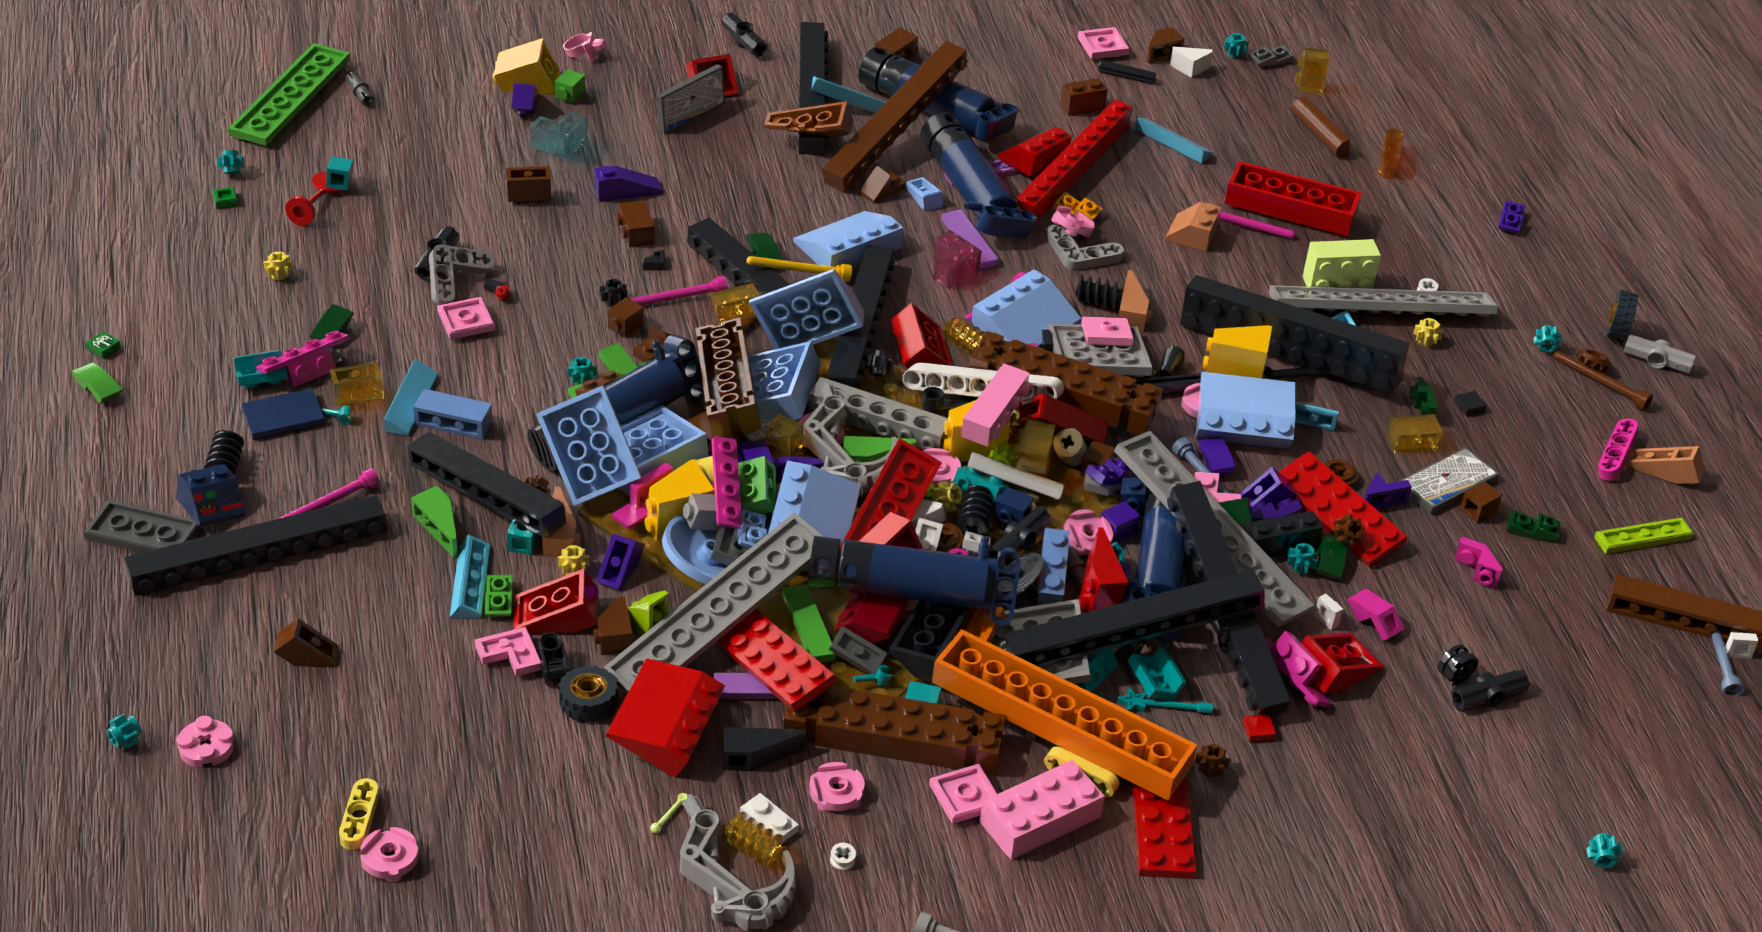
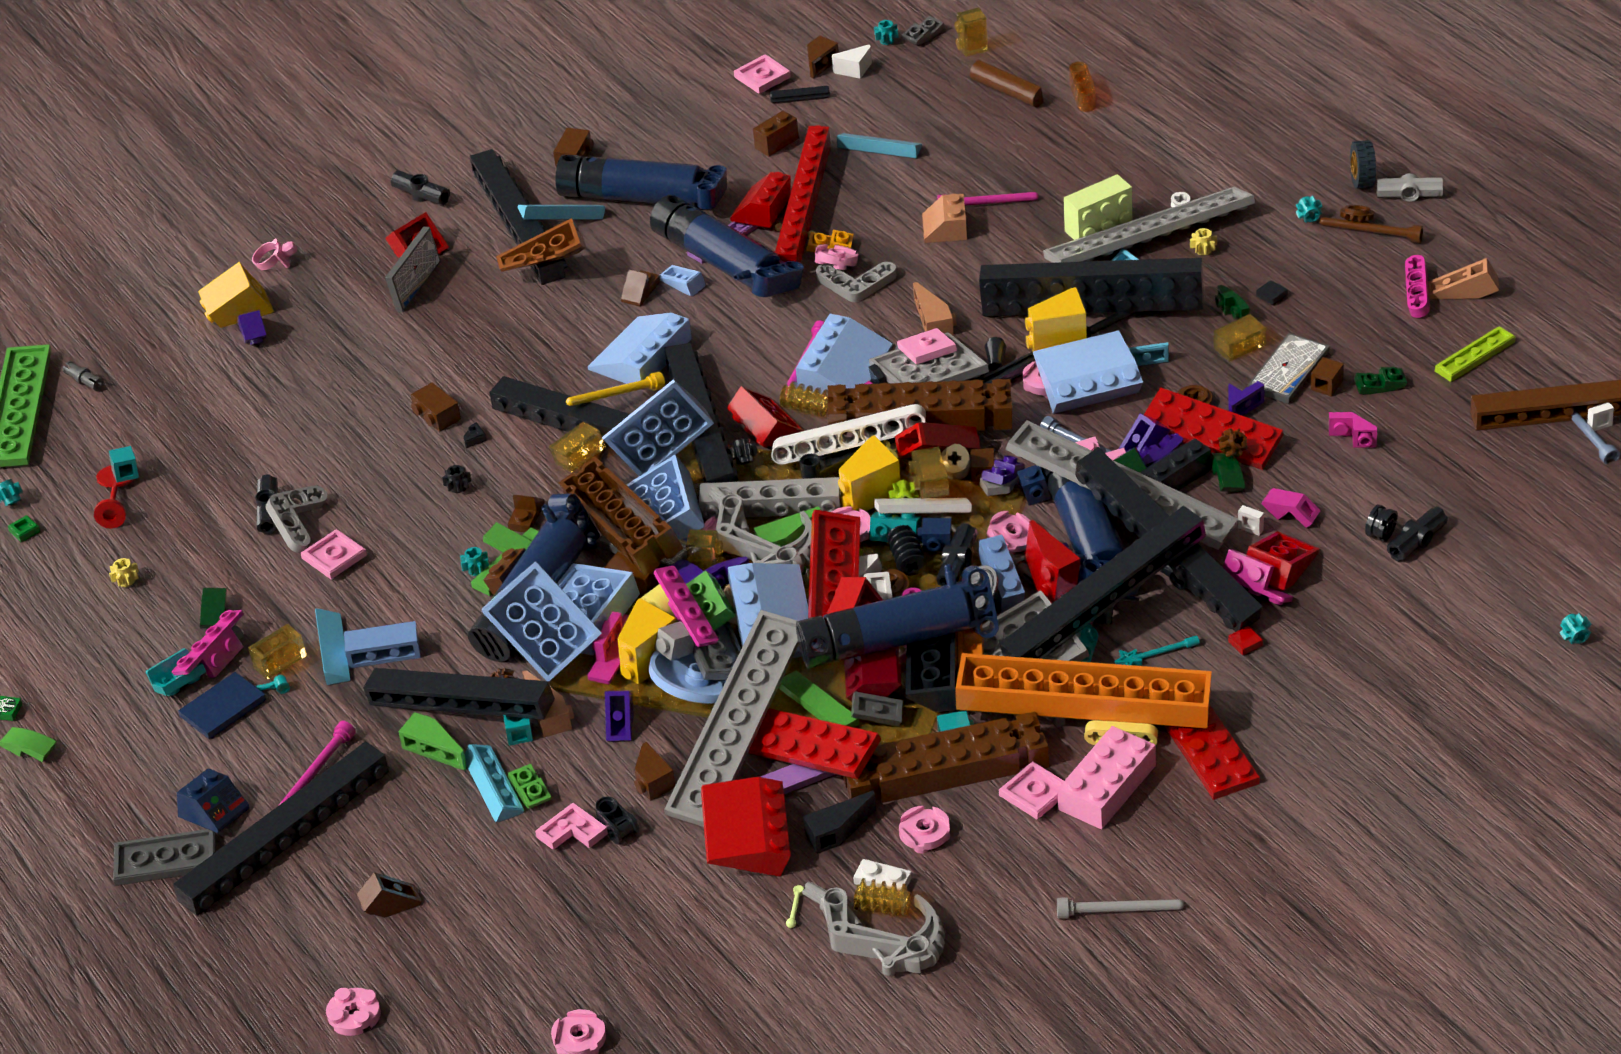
camera: 15 degrees left, 0 degrees up
(124, 731) = (277, 1029): teal gear -> none
(225, 449) = (194, 757): black piece -> none
(363, 823) = (527, 1023): light yellow beam -> none
(500, 288) = (347, 515): arm -> none
(528, 184) = (311, 407): reddish brown brick -> none
(558, 605) = (588, 773): red slope -> none
(559, 137) = (308, 352): clear light blue brick -> none
(570, 86) = (286, 299): bright green brick -> none
(573, 559) = (577, 730): light yellow gear -> none
(588, 693) = (664, 836): black wheel -> none
(622, 183) = (396, 374): dark purple slope -> none
(625, 317) = (482, 497): reddish brown brick -> none
(648, 611) = (676, 746): lime slope -> none
(716, 285) = (547, 437): dark pink piece -> none
(752, 528) = (728, 644): light blue slope -> none
(763, 246) = (568, 384): dark green slope -> none
(843, 849) = (958, 877): white bush -> none
(880, 678) = (907, 724): teal hand -> none
(894, 116) = (620, 216): reddish brown brick -> none
(948, 495) = (874, 544): light yellow gear -> none
(955, 259) = (750, 330): clear pink brick -> none
(961, 225) = (749, 307): medium lavender tile -> none
(971, 542) = (922, 578): white plate -> none
(996, 404) = (879, 448): bright pink brick -> none
(1099, 292) = (896, 312): black piece -> none
(1123, 521) = (1034, 508): dark purple brick -> none
(1158, 674) = (1139, 628): teal bracket -> none
(1212, 760) = (1224, 682): reddish brown gear -> none
(1217, 455) = (1083, 421): dark purple slope -> none
(1293, 198) = (1020, 161): red brick -> none
(1302, 558) = (1204, 483): teal gear -> none
(1511, 216) = (1219, 107): dark purple slope -> none

